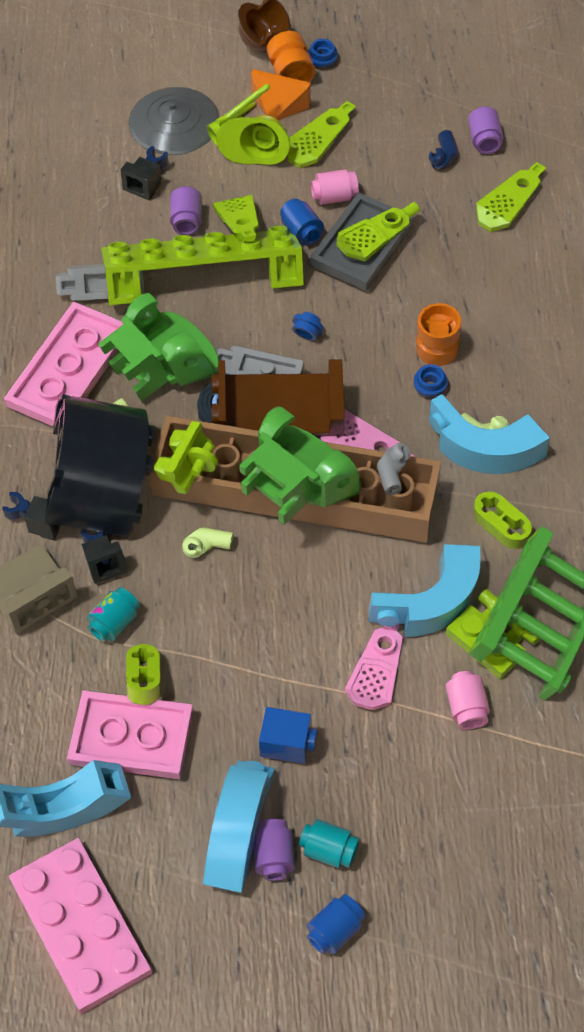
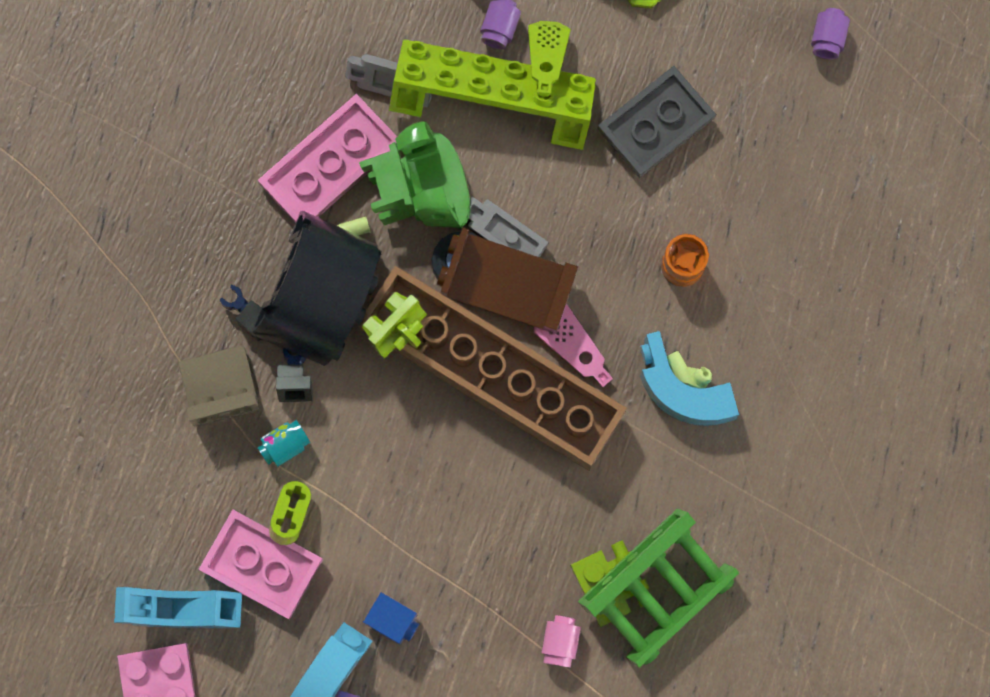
camera: 15 degrees right, 20 degrees up
(205, 539) = (391, 394): yellowish green arm -> none
(297, 468) = (493, 373): bright green piece -> none
(301, 221) = (606, 78): blue brick -> none
(307, 326) = (567, 201): blue plate -> none
(334, 186) = (654, 48): bright pink brick -> none
(372, 234) = (675, 118): lime piece -> none
(379, 661) = (500, 572): bright pink piece -> none
(390, 465) = (576, 400): light grey arm -> none
(430, 373) = (663, 294): blue plate -> none
(438, 606) = (593, 531): medium azure arch -> none
(447, 153) = (783, 44): dark blue arm -> none
(505, 517) = (672, 470): lime beam -> none
(506, 201) = (826, 118): lime piece -> none

